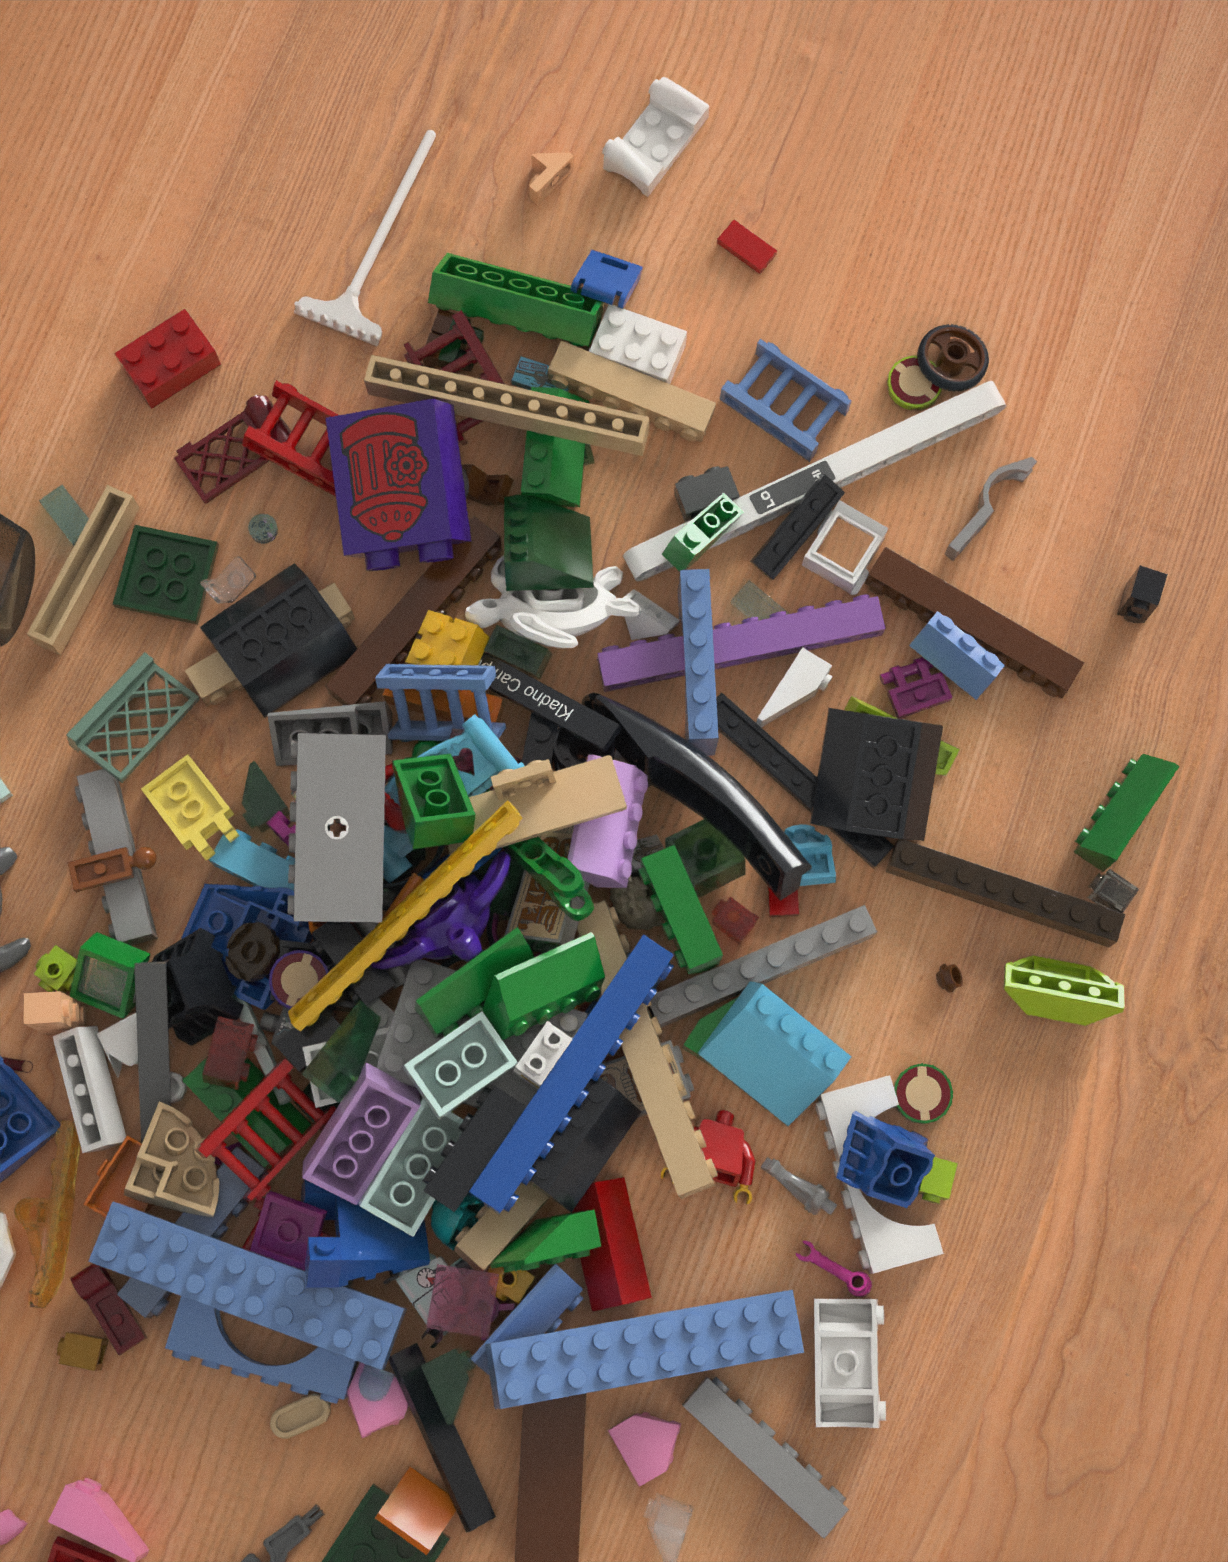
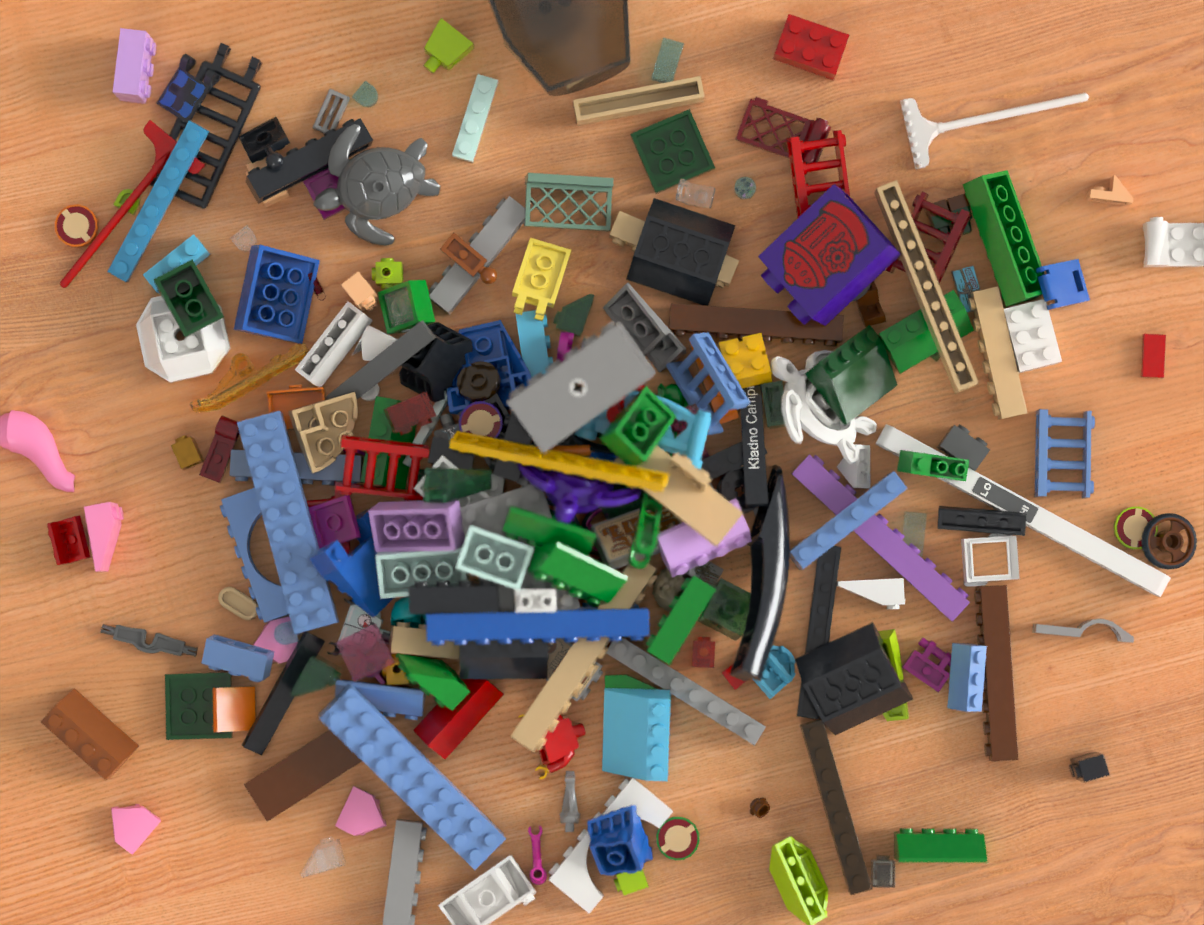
camera: 55 degrees right, 10 degrees up
(361, 1462) = (237, 658): none -> medium blue brick

